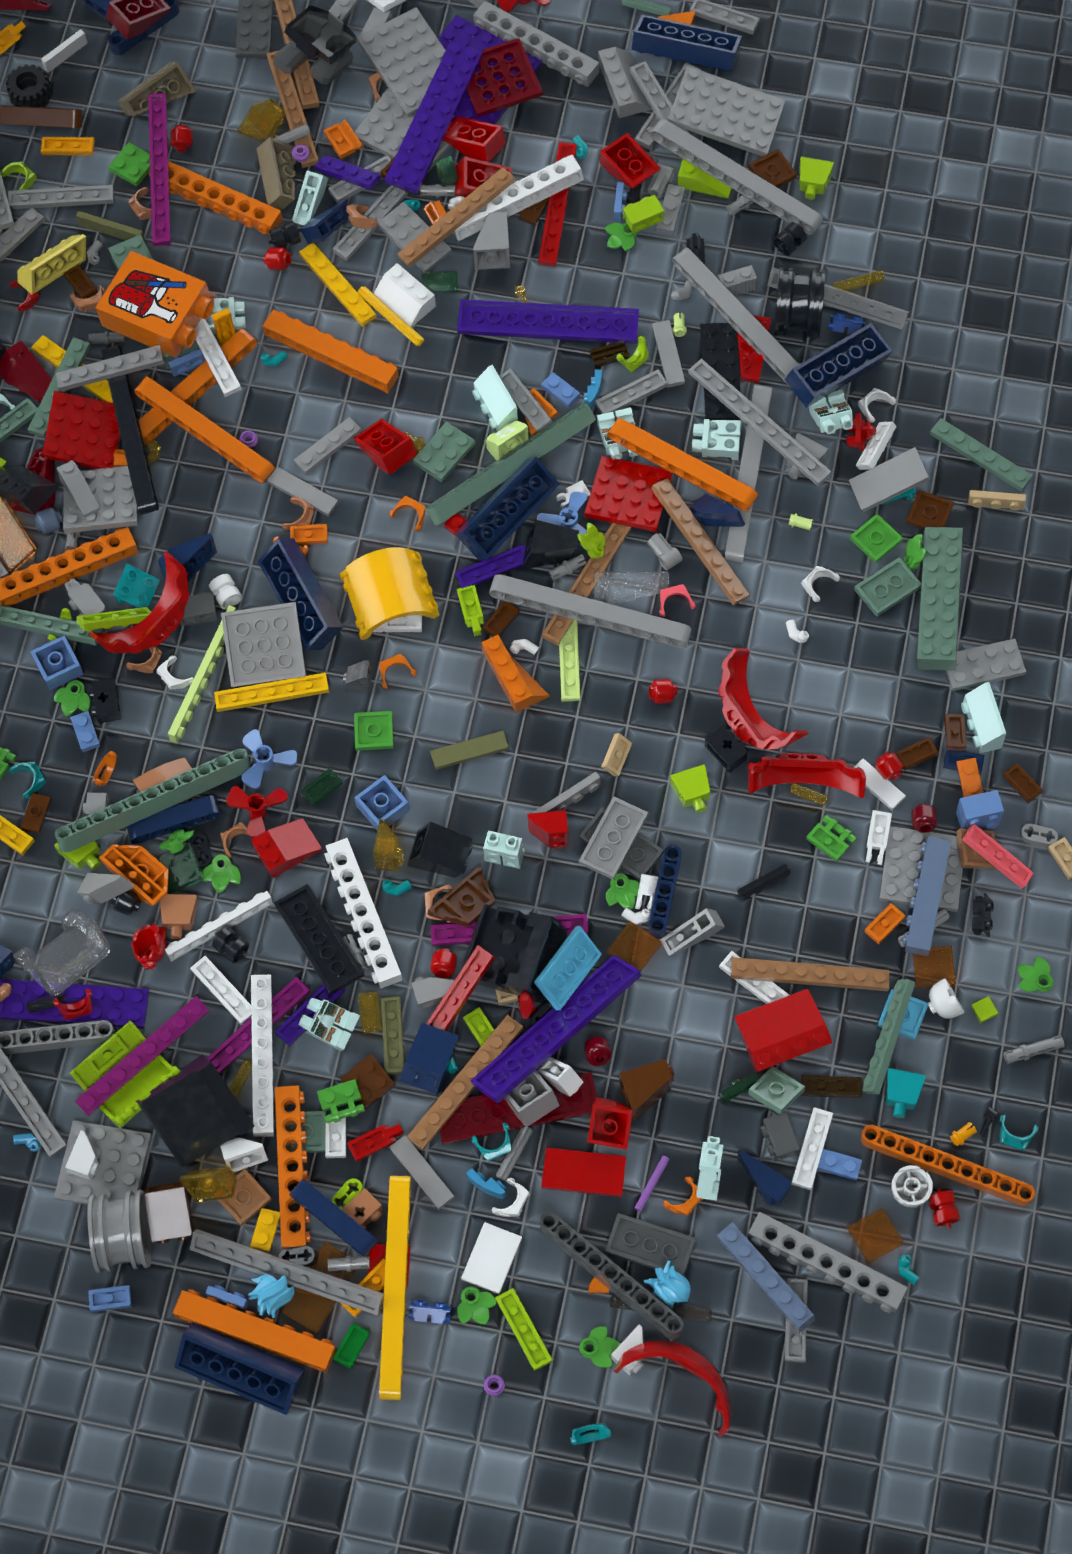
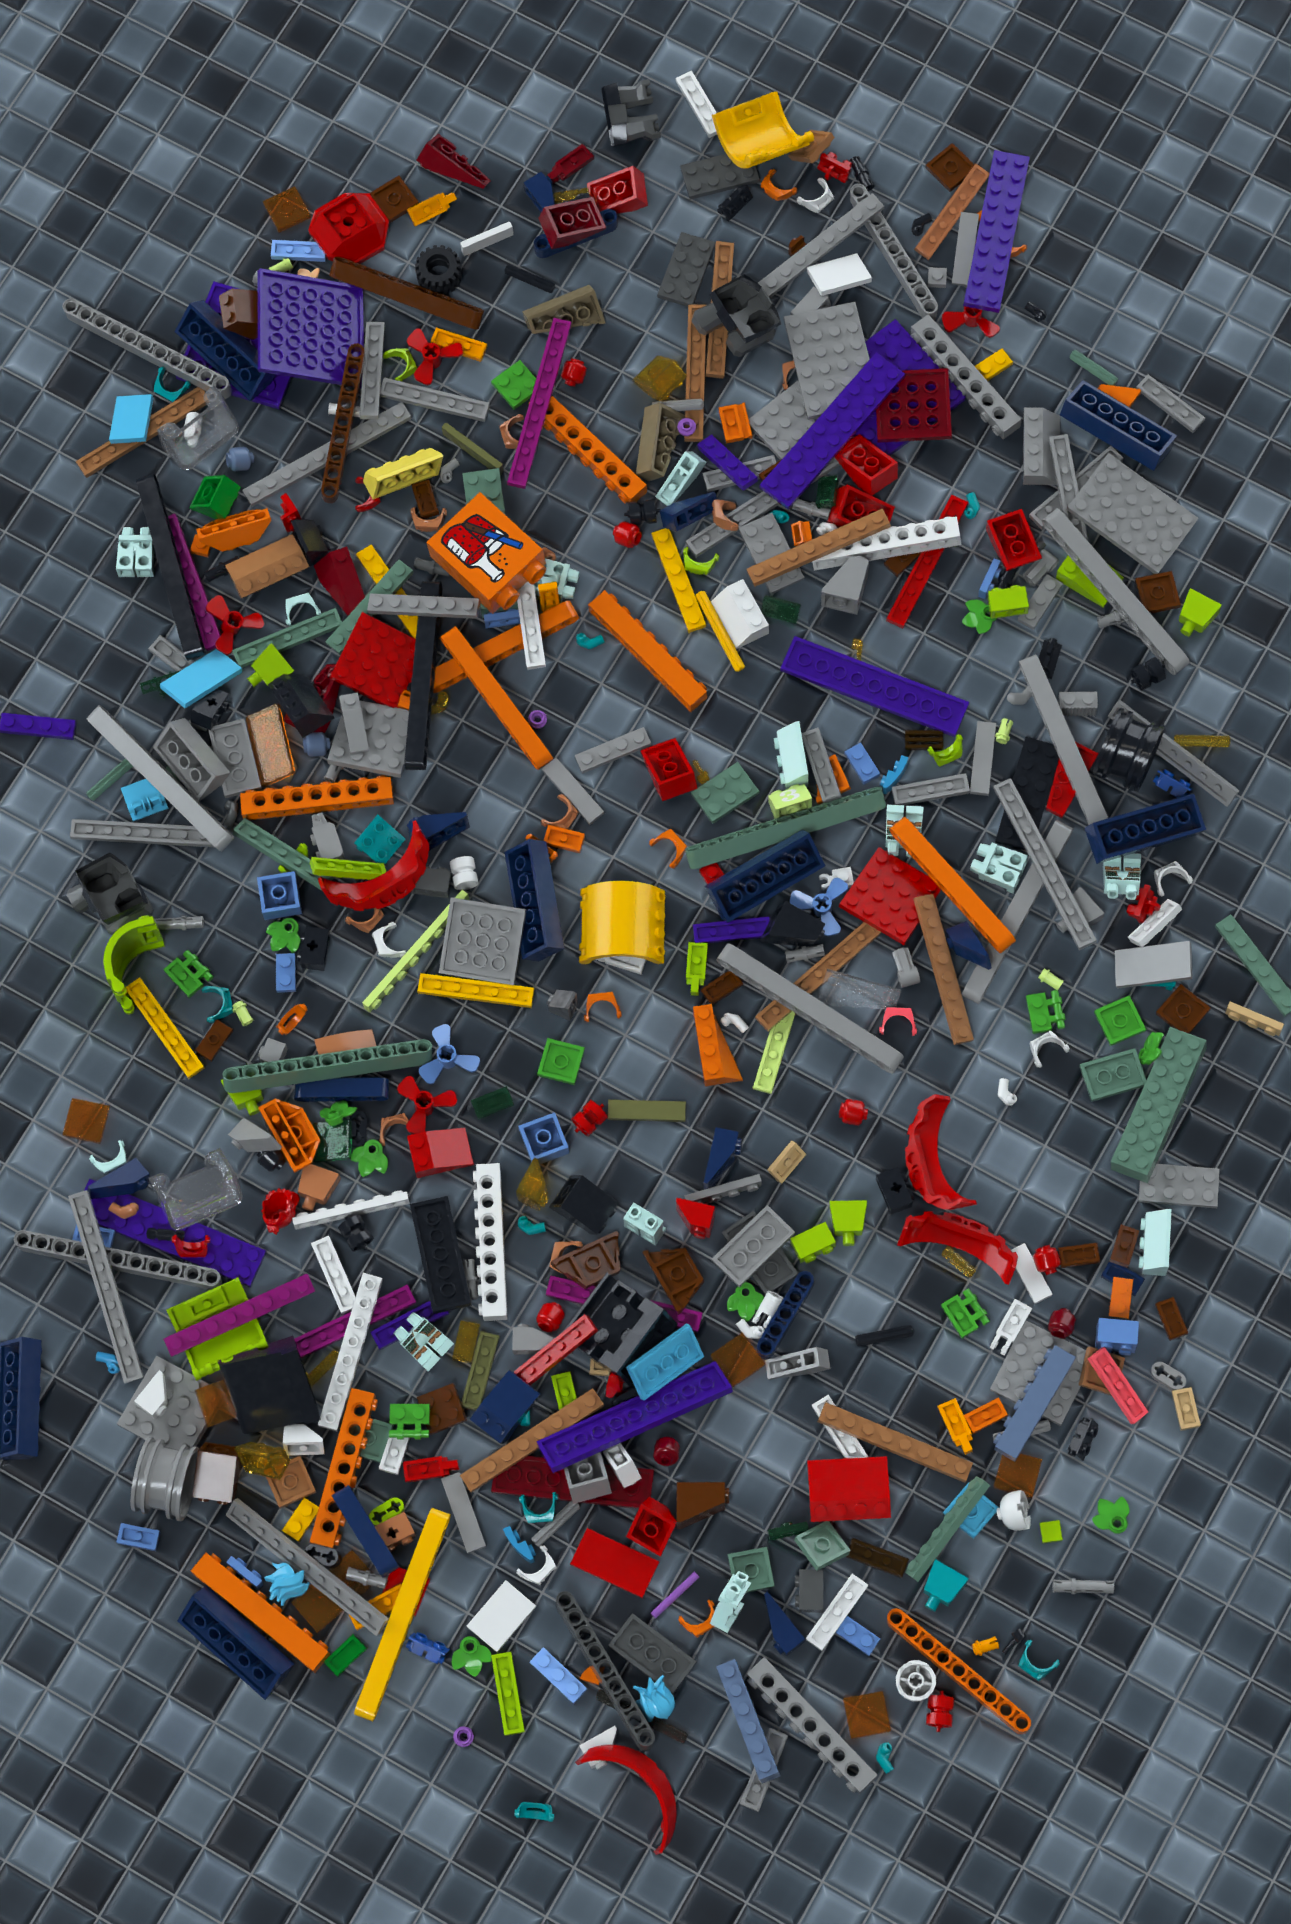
camera: 20 degrees right, 5 degrees up
(45, 159) = (424, 372): none -> red piece
(52, 777) = (242, 1013): none -> yellowish green pin
(114, 73) = (529, 278): none -> black axle
(146, 1145) = (215, 1403): none -> clear orange tile
(353, 268) = (696, 567): none -> lime helmet
(418, 772) = (589, 1118): none -> red wheel
(549, 887) = (676, 1275): none -> reddish brown wing
(555, 758) = (723, 1152): none -> dark blue slope
(558, 26) = (994, 364): none -> yellow plate
(566, 1296) = (558, 1675): none -> light blue plate
(593, 541) = (837, 937): lime plate -> none
(602, 1346) = (575, 1734): bright green plate -> none
(667, 818) = (813, 1243): none -> lime hinge
(718, 1126) = (754, 1564): none -> sand green plate
(800, 554) = (1039, 1012): none -> bright green plate
(861, 940) = (956, 1424): none -> light orange hinge

